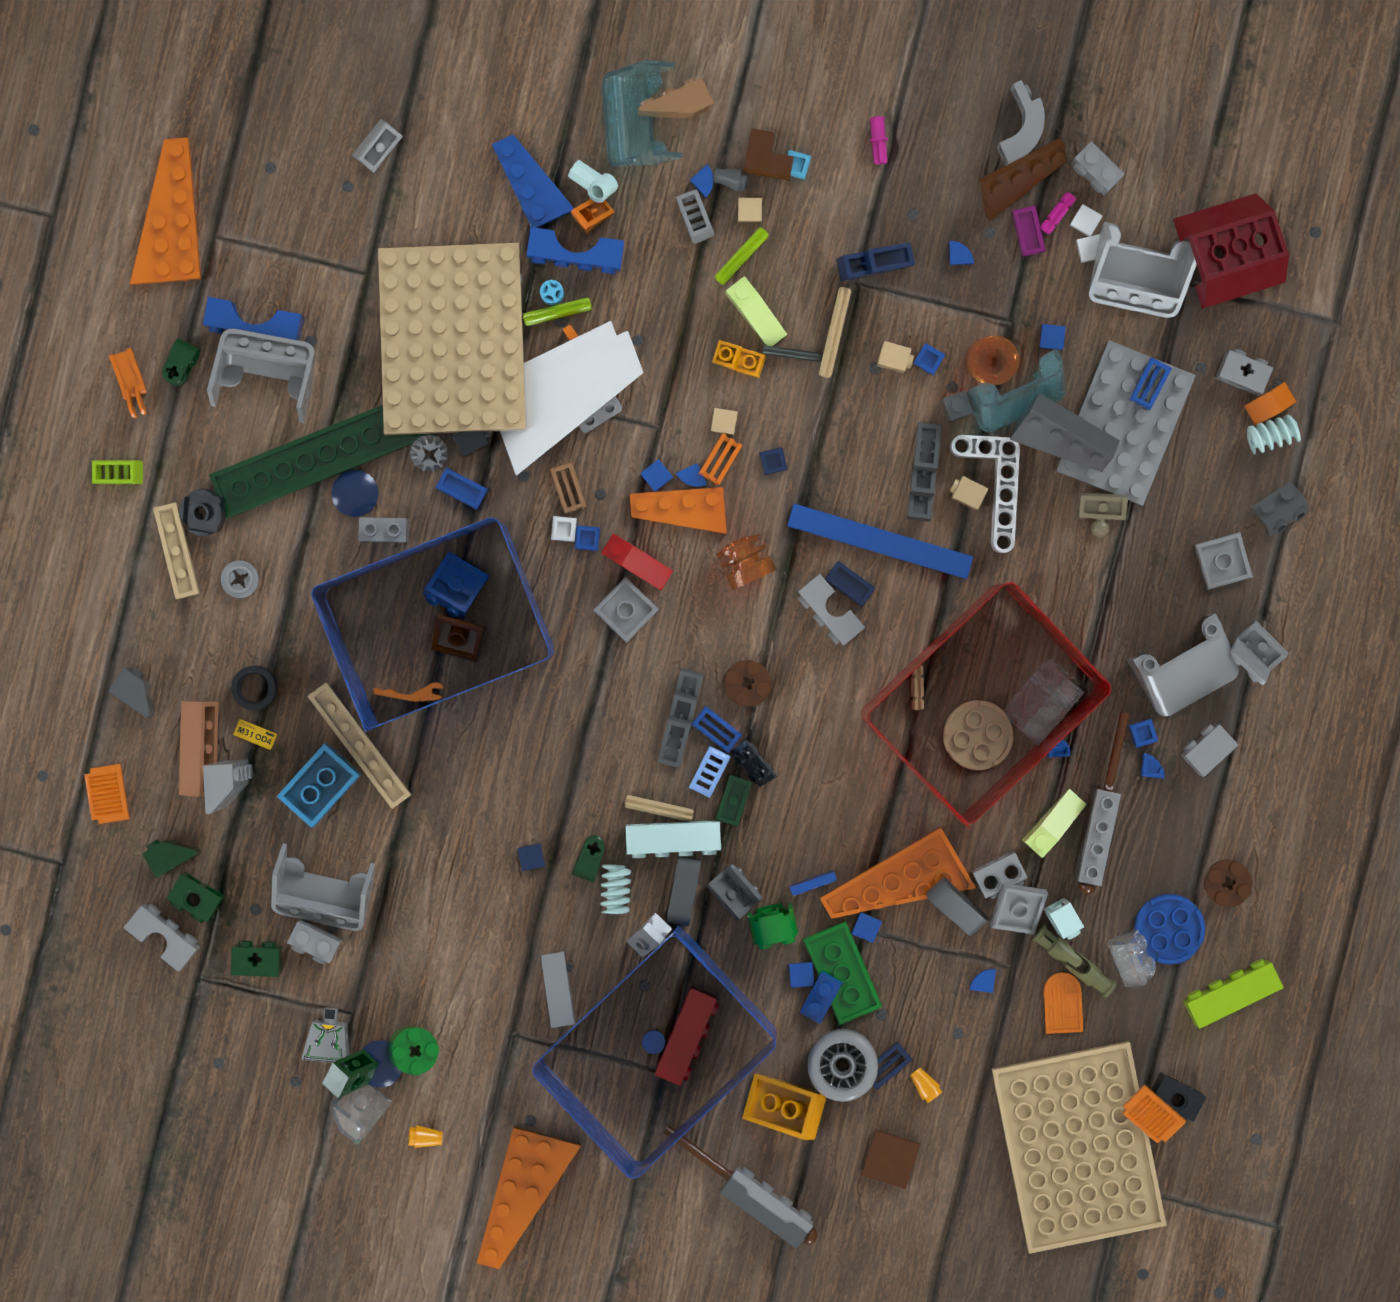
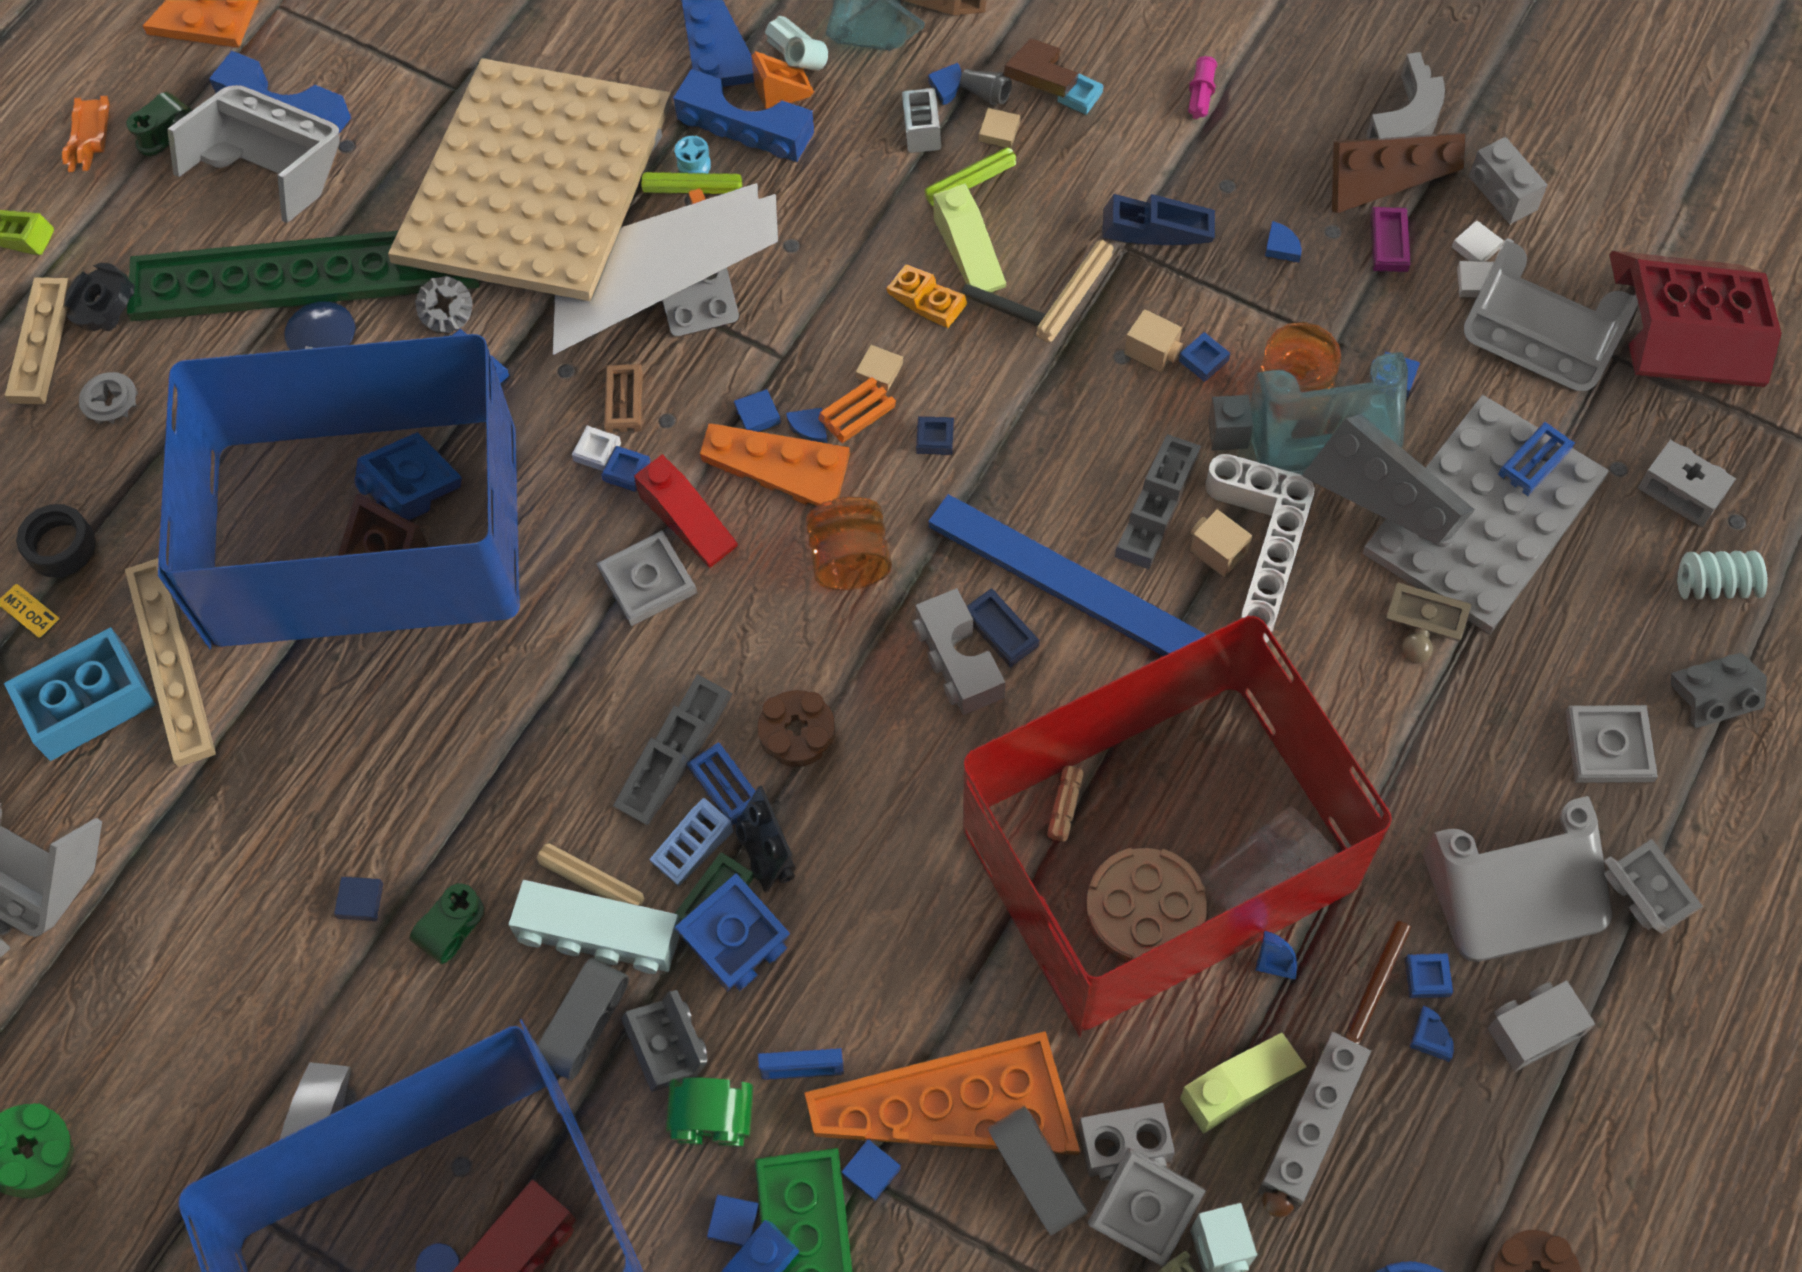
camera: 15 degrees right, 25 degrees down
(471, 441) = (509, 304): black brick -> none
(616, 889) = (469, 979): light aqua piece -> none
(754, 822) = (733, 934): none -> blue plate
(1057, 213) = (1438, 225): dark pink axle -> none
(1270, 404) = (1722, 531): orange slope -> none

